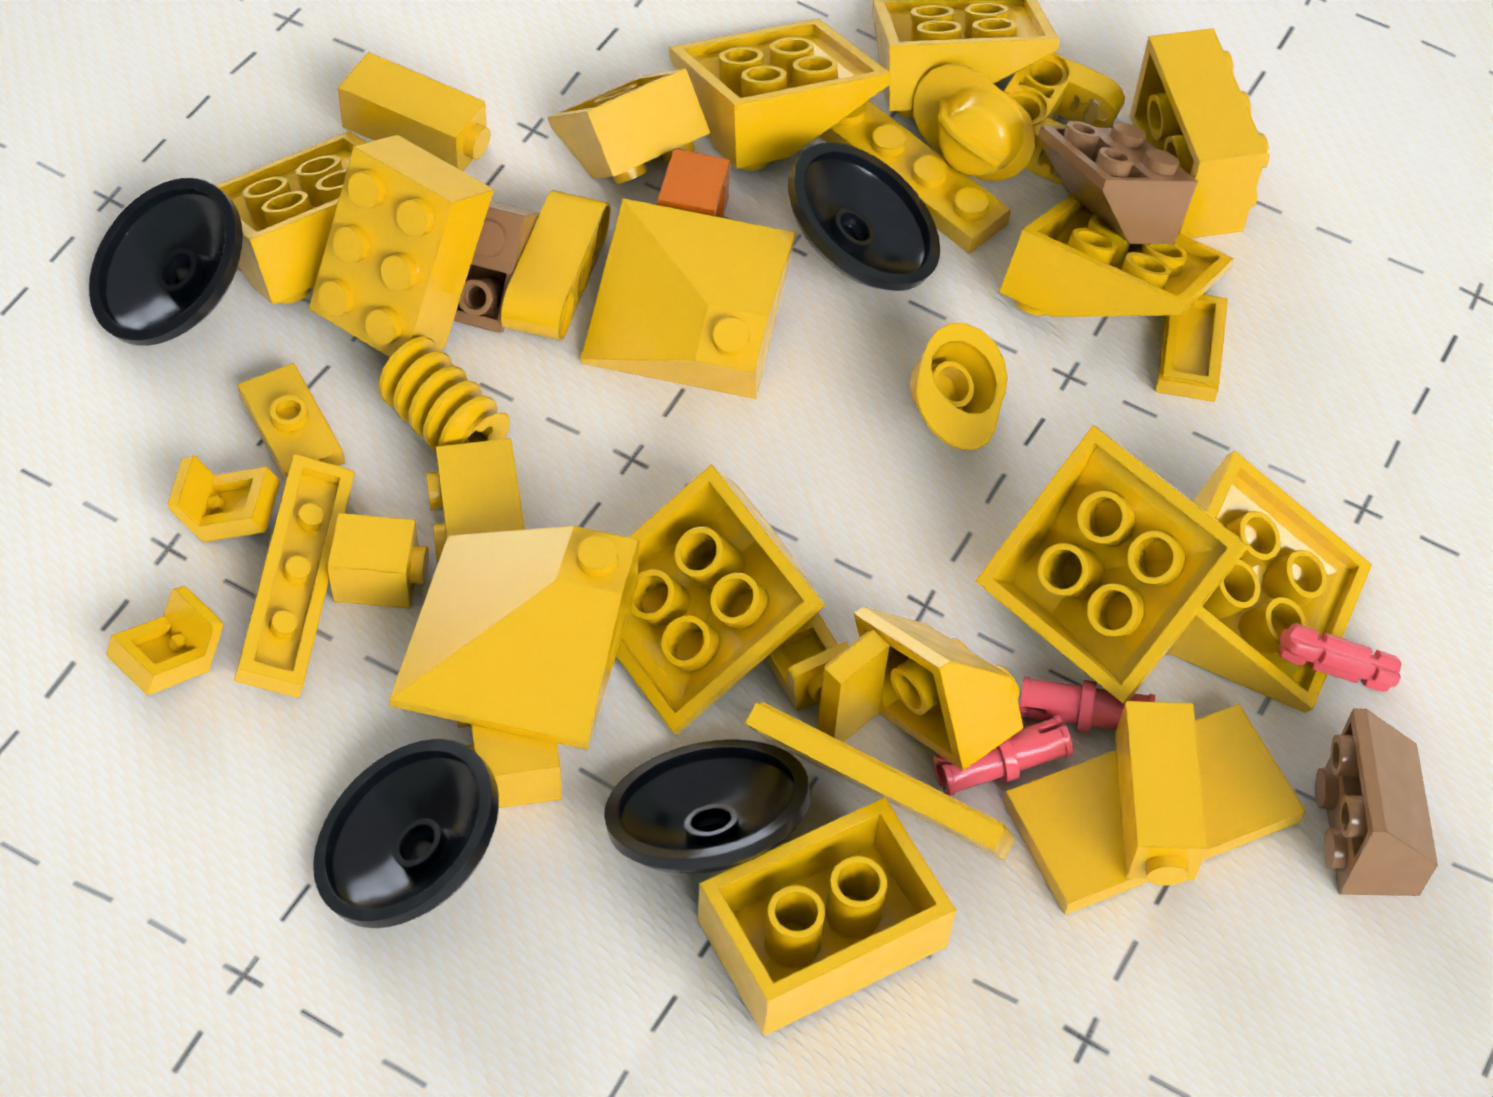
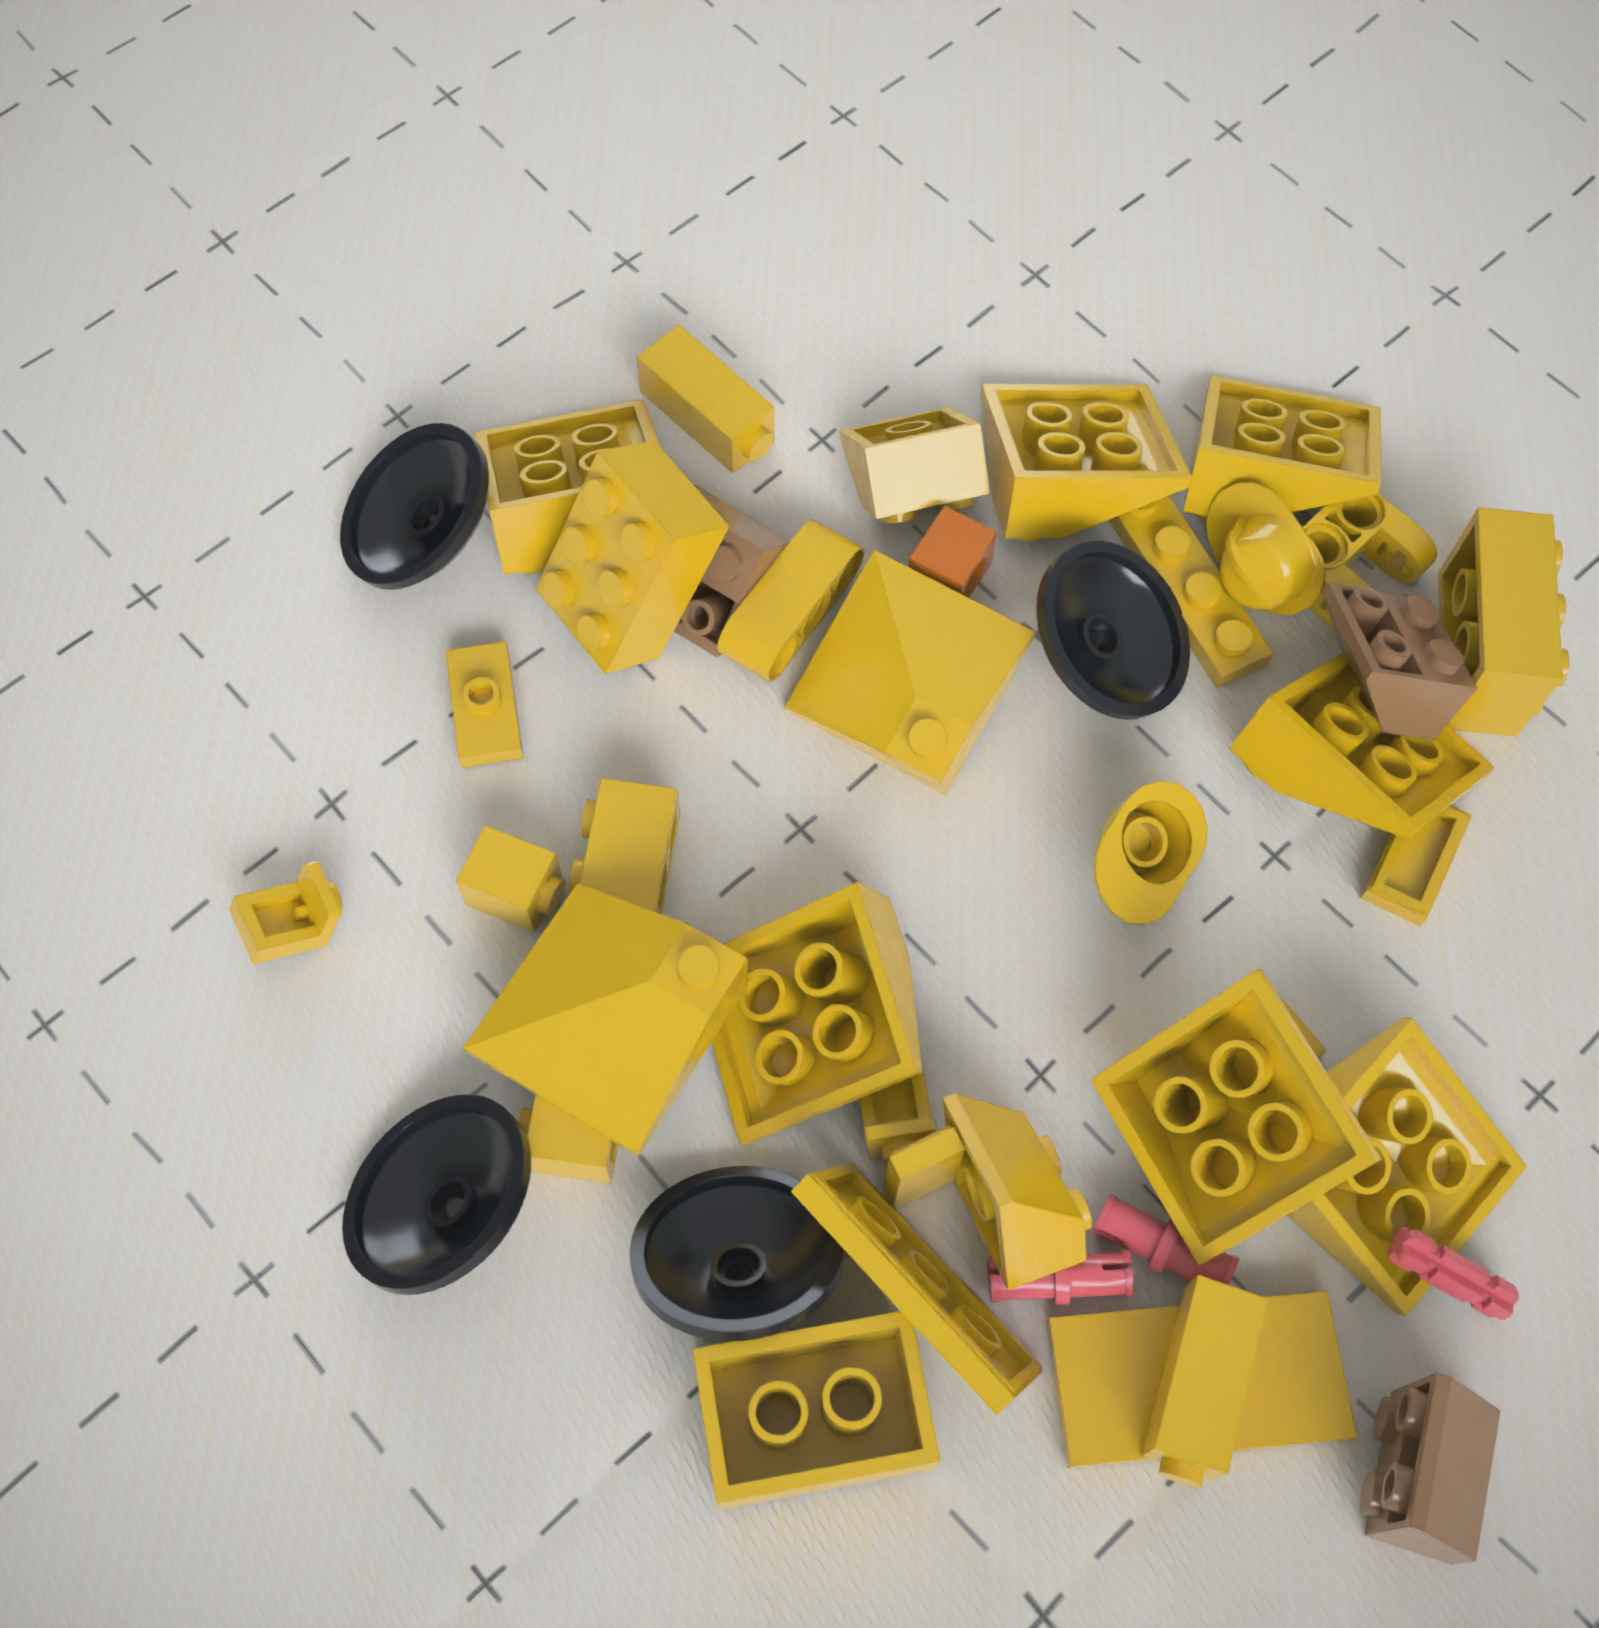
camera: 20 degrees right, 10 degrees up
(222, 503) = (388, 774): yellow bracket -> none
(294, 578) = (426, 876): yellow plate -> none
(438, 397) = (627, 722): yellow piece -> none

